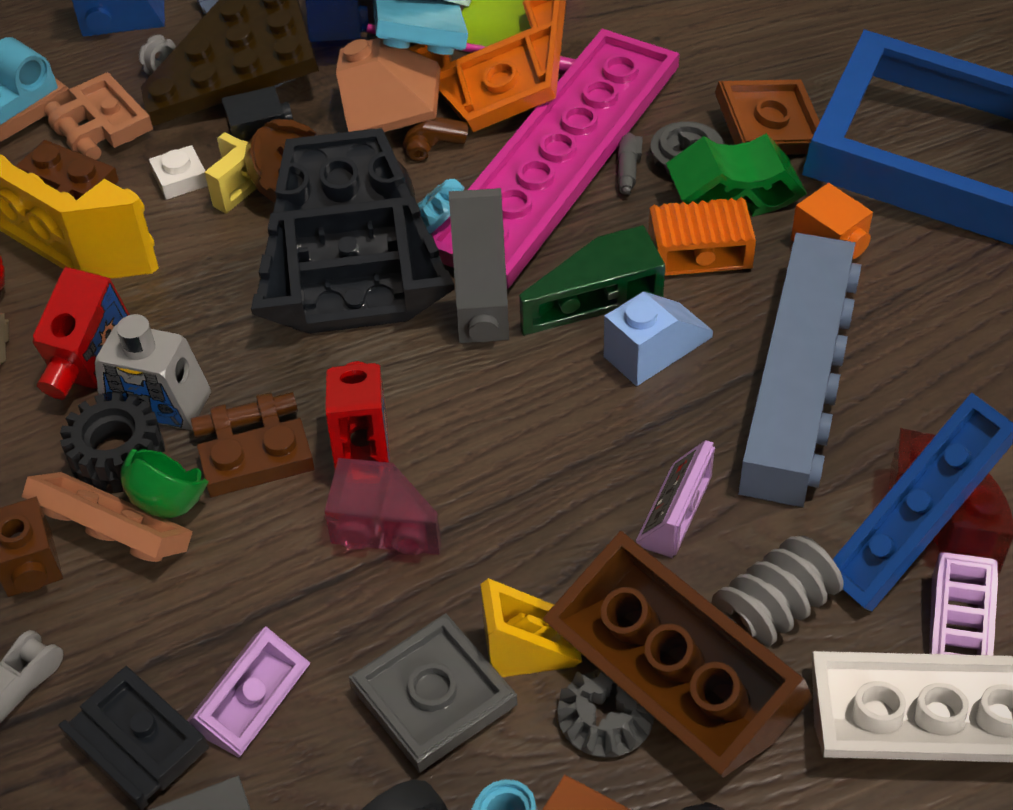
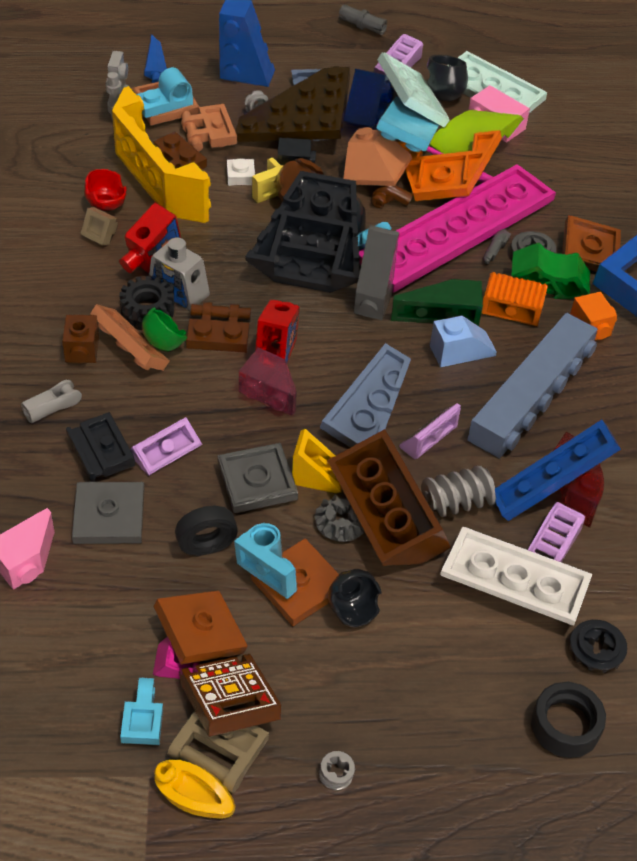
camera: 15 degrees right, 0 degrees up
(556, 500) = (369, 400): none -> sand blue wing

